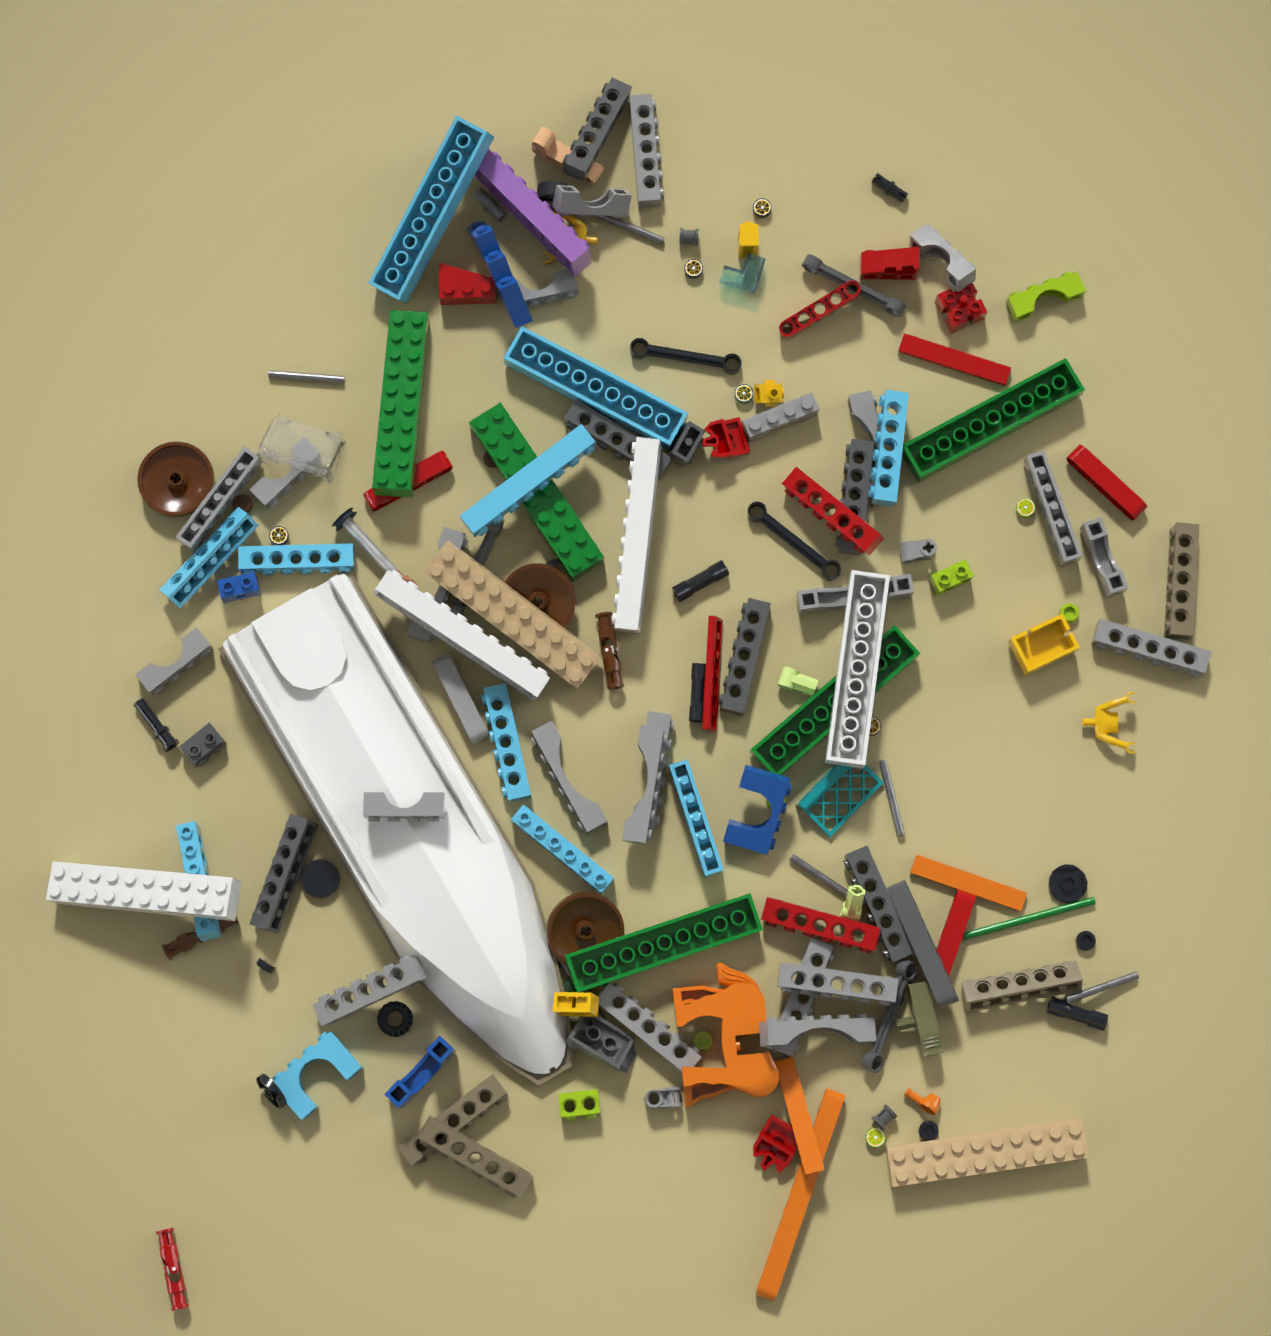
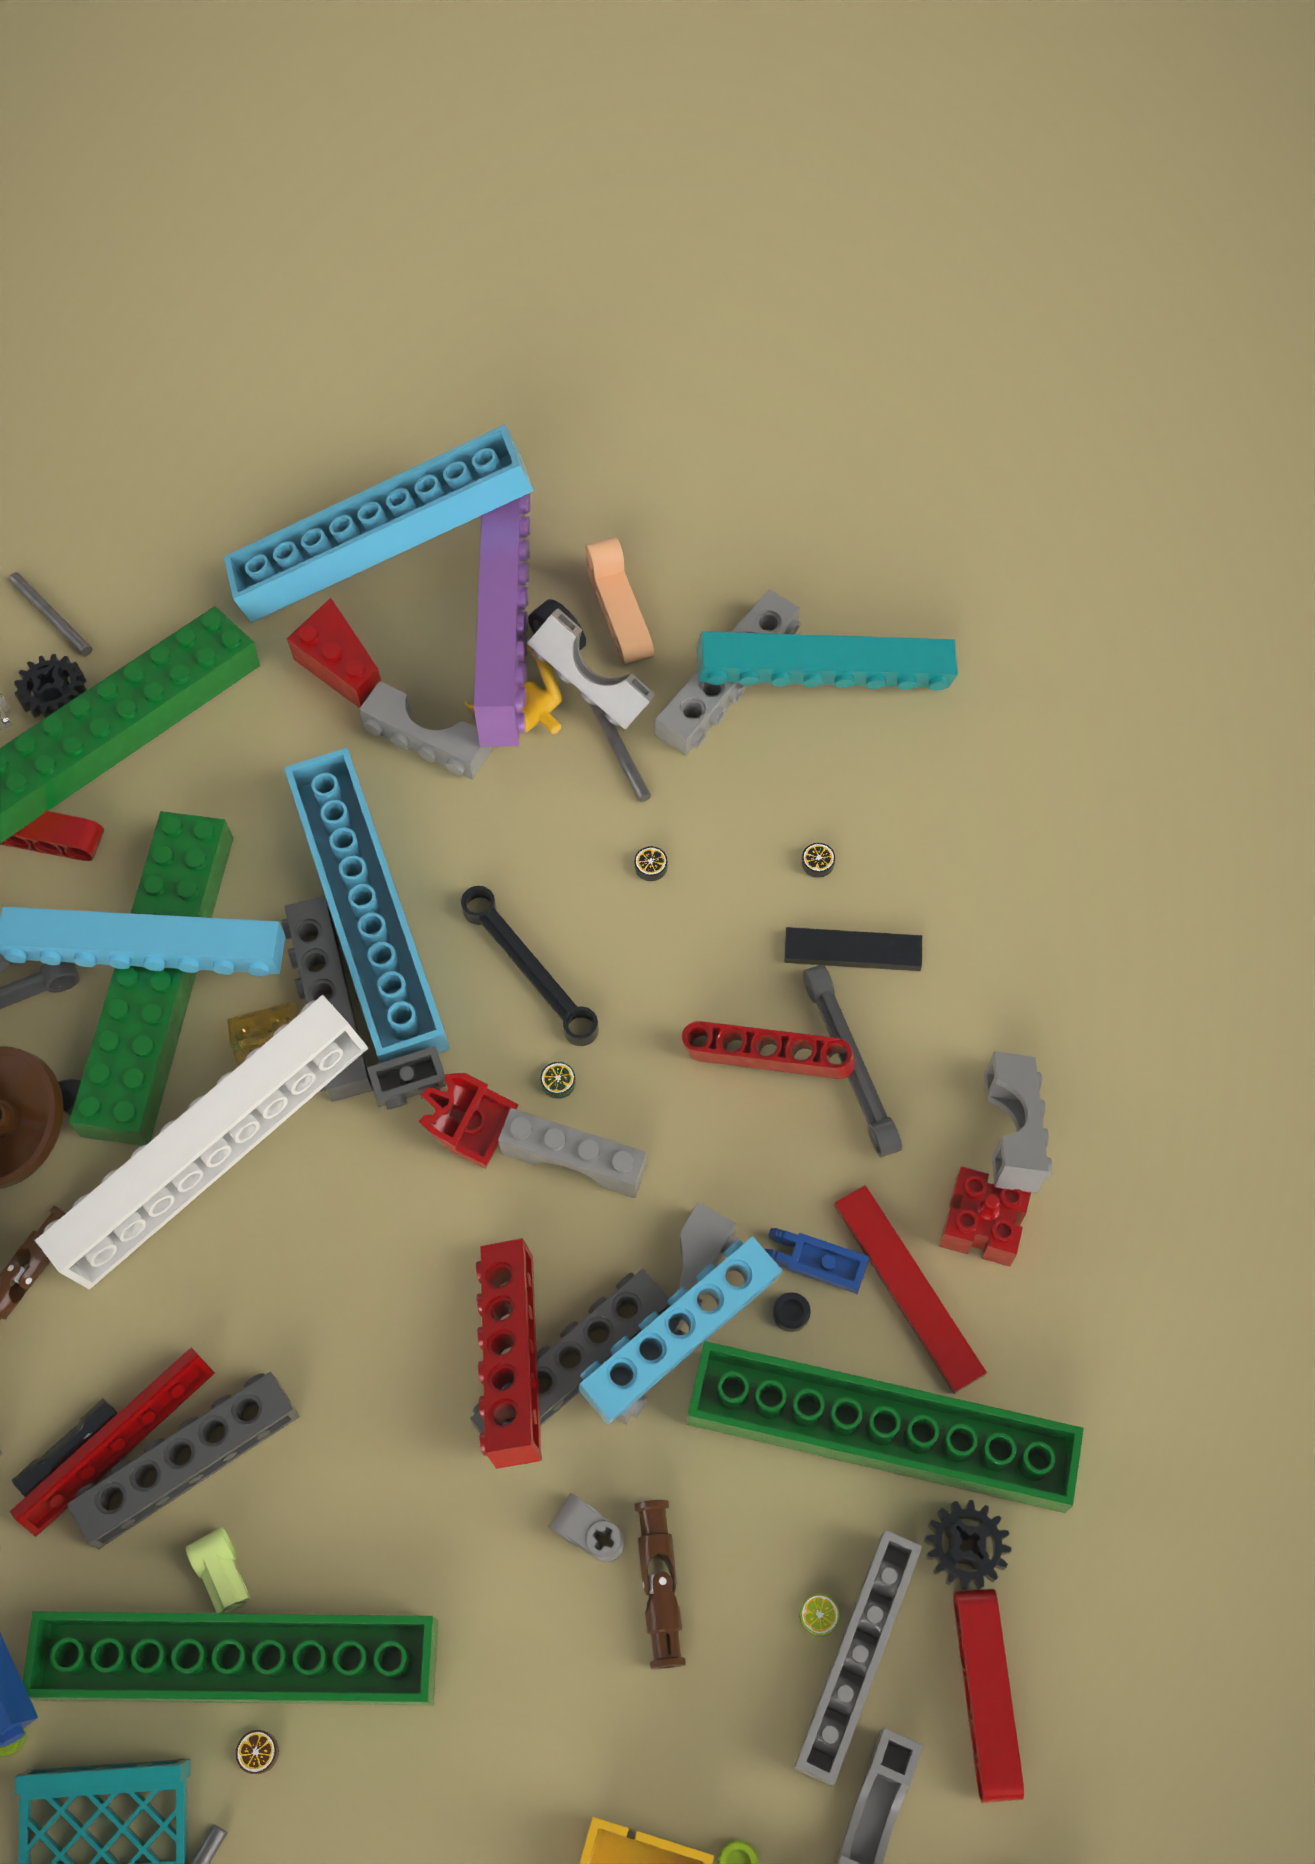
camera: 45 degrees right, 15 degrees down
(342, 411) = (49, 685): none -> black gear
(489, 204) = (469, 588): light grey pin -> none
(500, 272) = (386, 651): blue arch -> none
(580, 167) = (685, 596): dark grey brick -> none
(608, 476) = (257, 1028): none -> clear yellow bracket
(687, 111) = (826, 660): none -> teal brick
(688, 236) = (682, 817): dark grey bush -> none
(689, 587) = (264, 1293): black axle -> none
(745, 279) = (706, 930): clear light blue brick -> none
(748, 239) = (754, 878): yellow brick -> none
(768, 393) = (579, 1095): yellow brick -> none
(794, 541) = (424, 1350): black piece -> none
(811, 236) = (853, 949): none -> black tile
(834, 598) = (428, 1511): light grey arch -> none
(857, 669) = (289, 1641): white brick -> none
(889, 188) = (1025, 971): black pin -> none
(890, 264) = (930, 1071): red wedge -> none
(913, 377) = (820, 1260): none -> blue hinge
(918, 407) = (791, 1312): none -> black tile
(951, 577) = (598, 1621): lime brick -> none
(962, 548) = (662, 1609): none -> reddish brown piece
(1065, 438) = (980, 1558): none -> black gear
(1067, 287) = (1179, 1323): lime arch -> none

